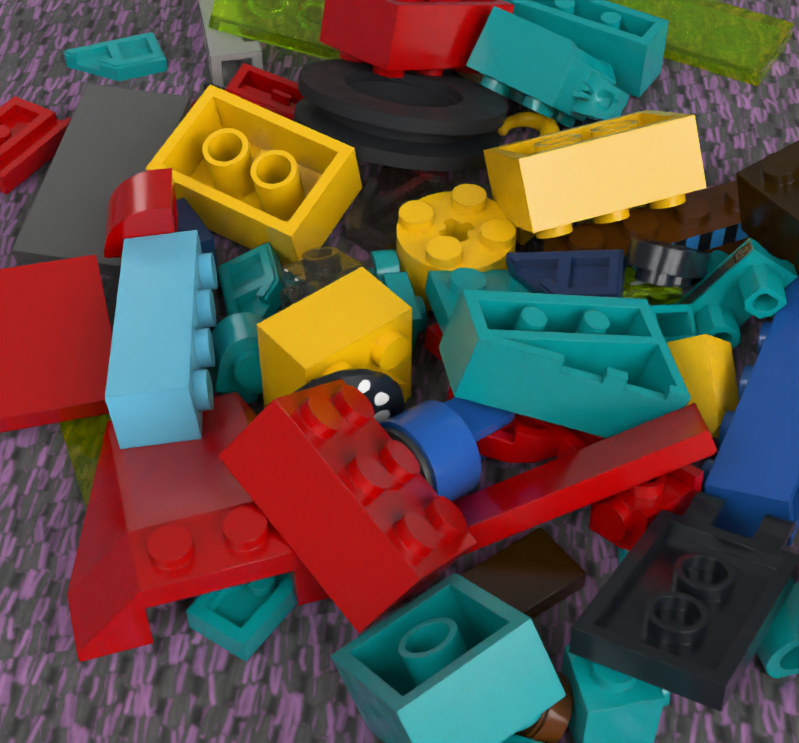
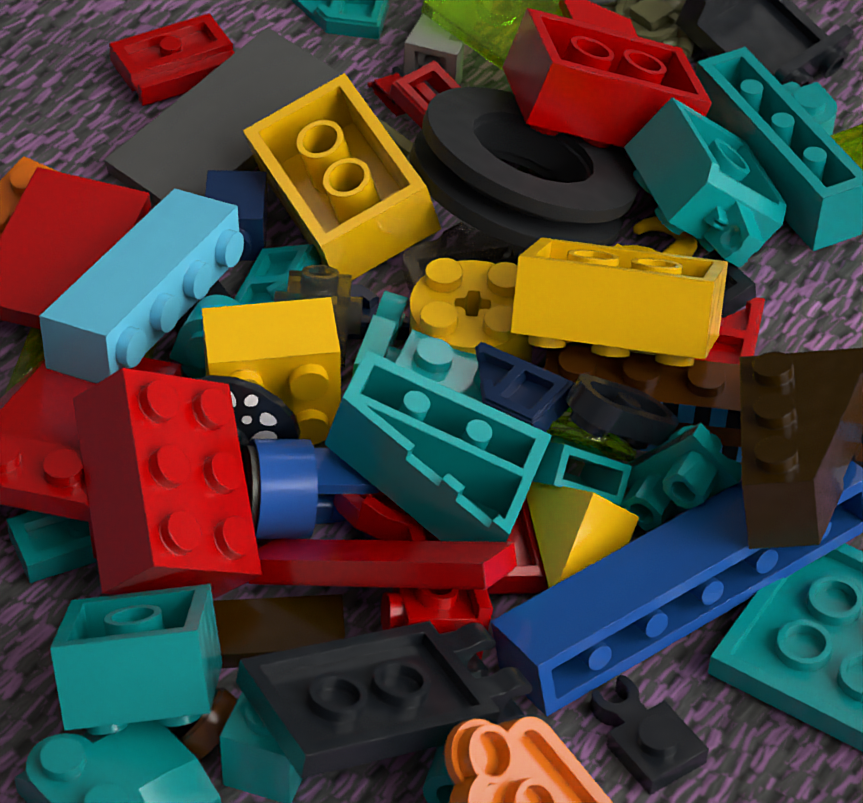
camera: 30 degrees right, 0 degrees up
(141, 208) = (210, 168): red brick -> none

